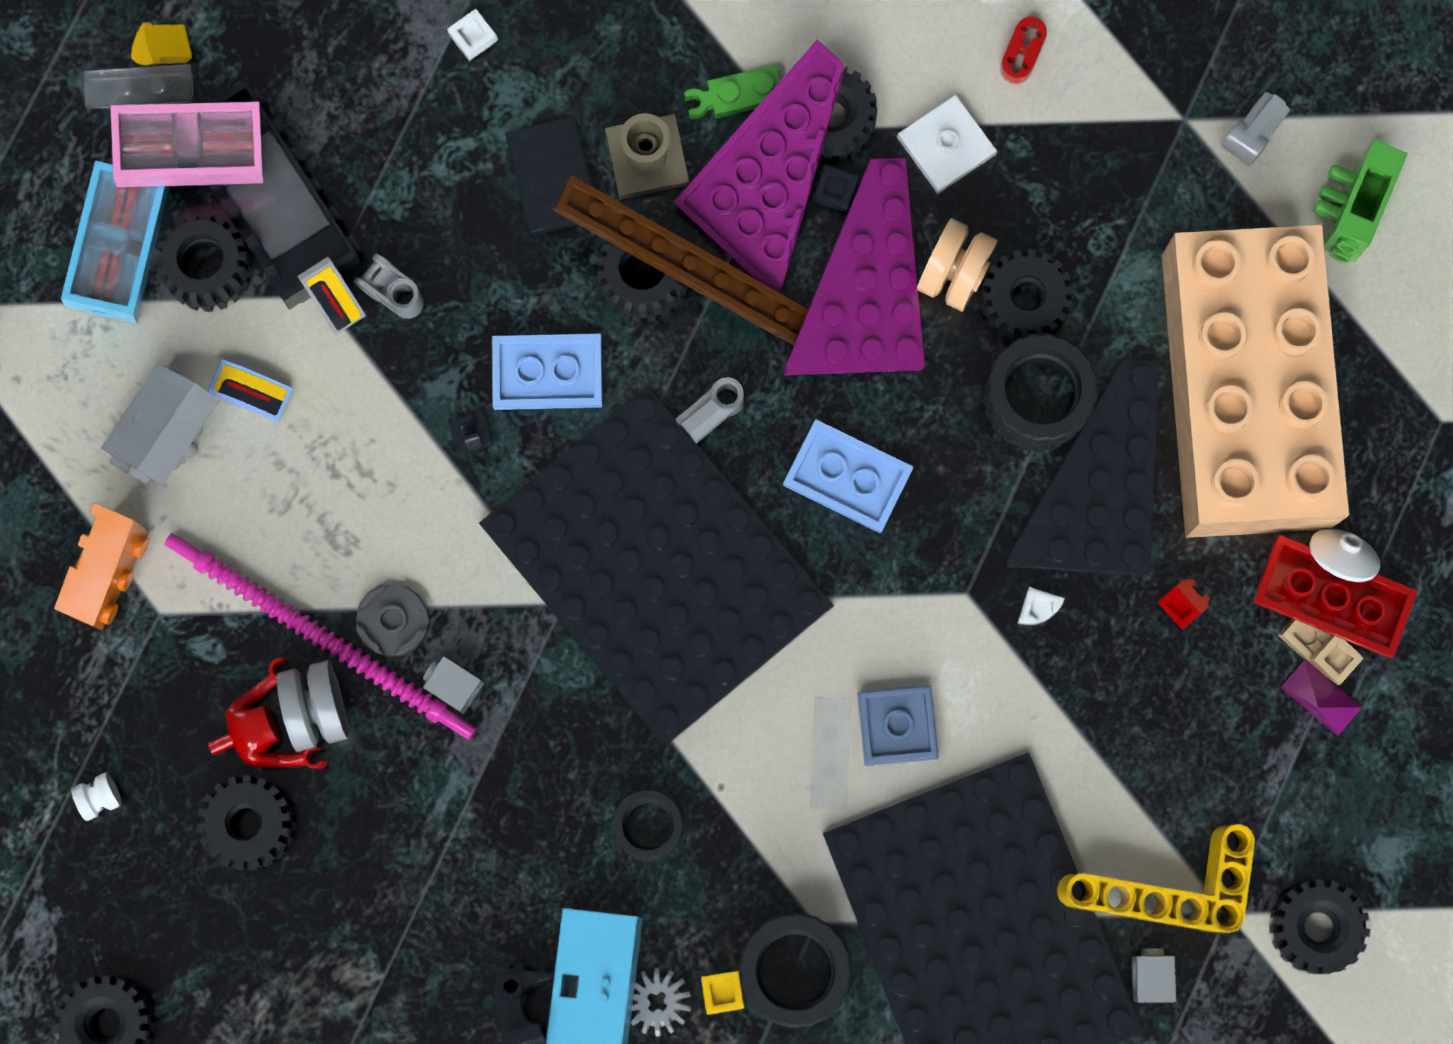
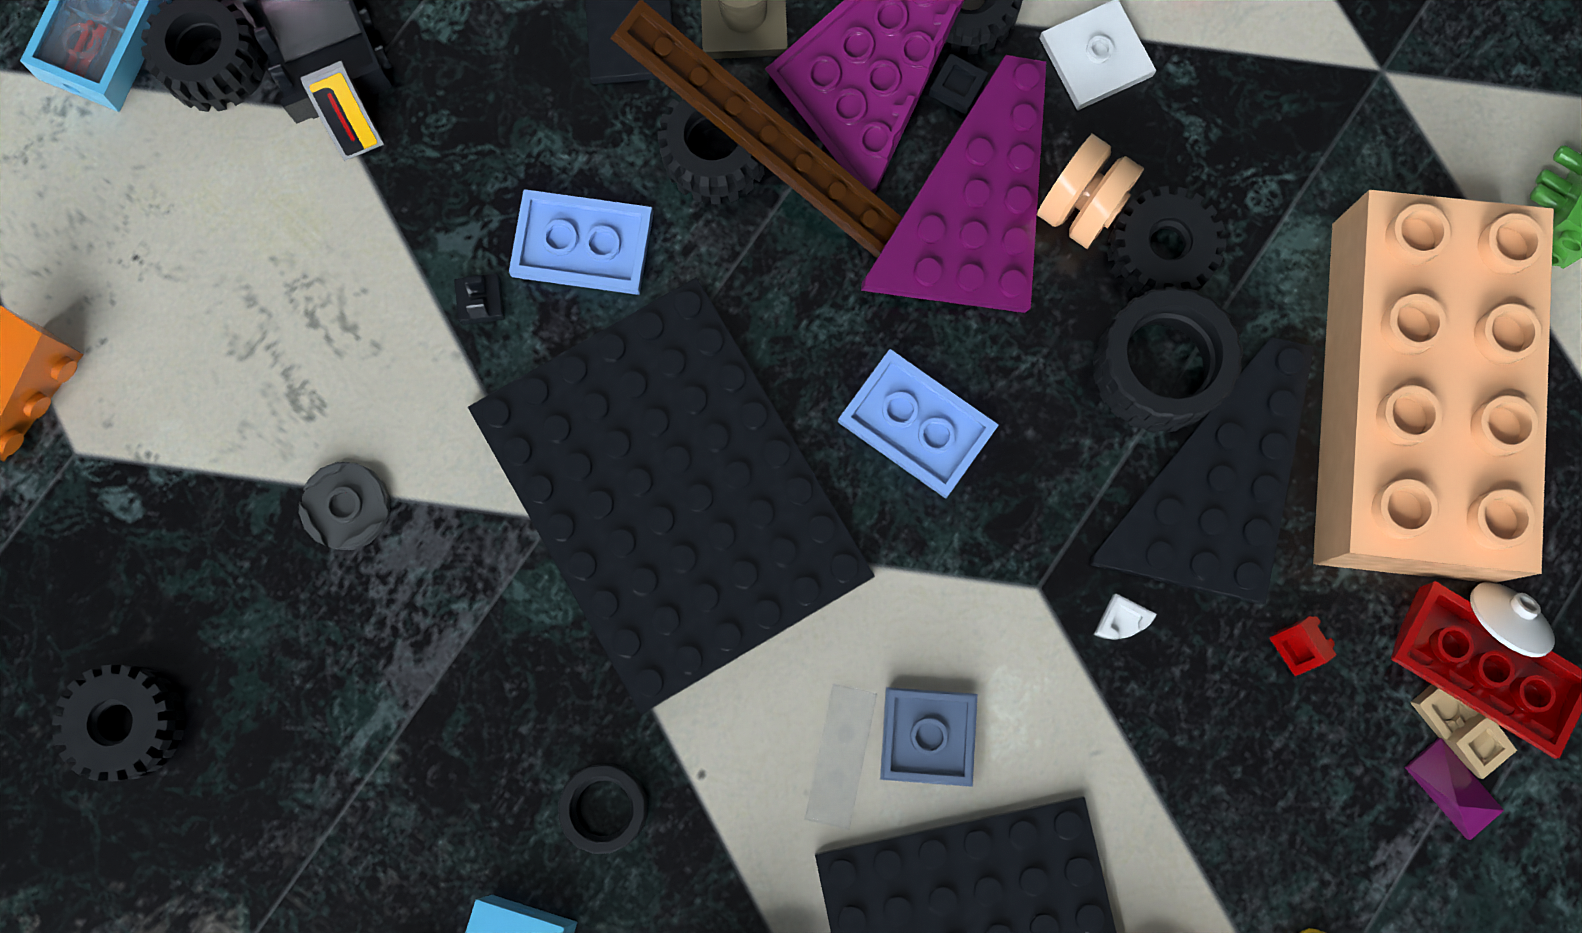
camera: 10 degrees right, 0 degrees up
(159, 426) = (110, 233): light grey piece -> none
(205, 562) = (138, 401): dark pink hose -> none
(249, 390) = (230, 208): slope -> none
(255, 730) = (154, 610): red piece -> none
(312, 706) = (220, 594): light grey wheel -> none
(386, 284) = (413, 113): light grey piece -> none
(452, 684) = (398, 596): light grey brick -> none
(709, 411) = (764, 320): light grey piece -> none
(1252, 134) = (1465, 96): light grey piece -> none

